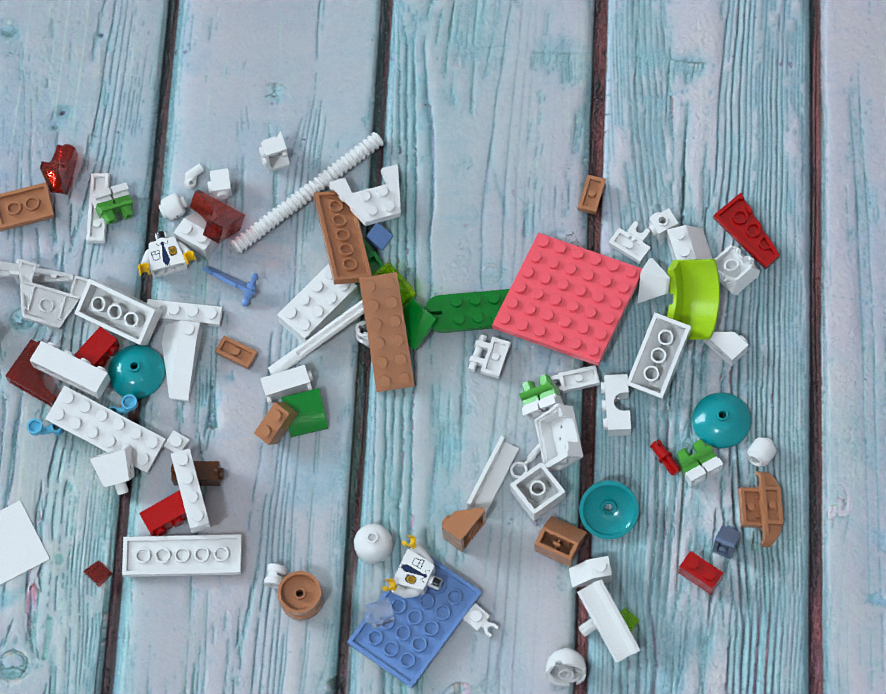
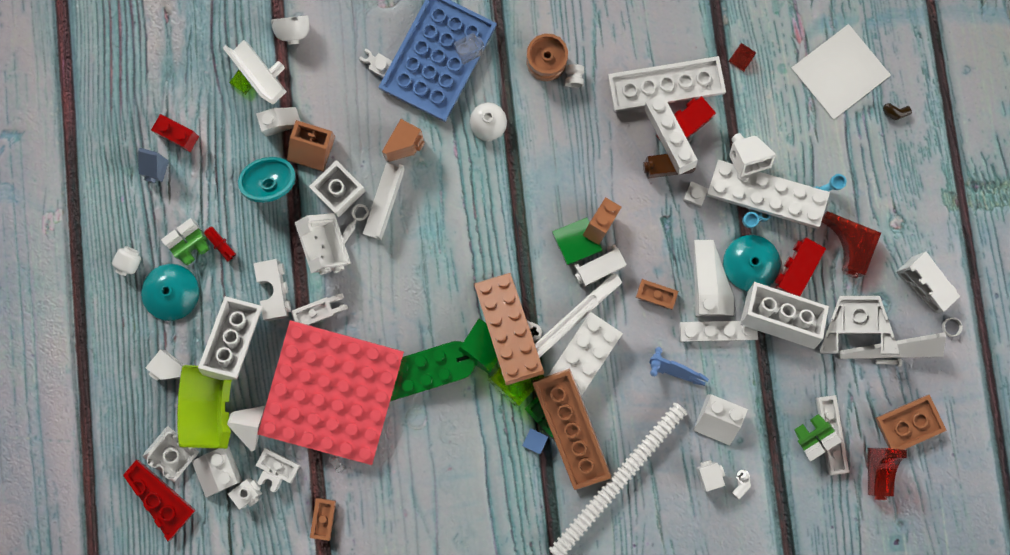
camera: 165 degrees right, 15 degrees up
(70, 369) = (818, 243): white brick -> none
(165, 256) = (751, 386): white torso -> none
(173, 206) = (755, 444): white head -> none
(220, 218) = (701, 435): clear red arch -> none
(274, 153) = (661, 518): white window -> none
(372, 204) = (545, 474): white wing -> none
(414, 572) = (442, 88): white torso -> none
(495, 356) = (398, 325): white plate -> none
(539, 398) = (344, 282): hips -> none
(762, 508) = (122, 207): nougat plate -> none

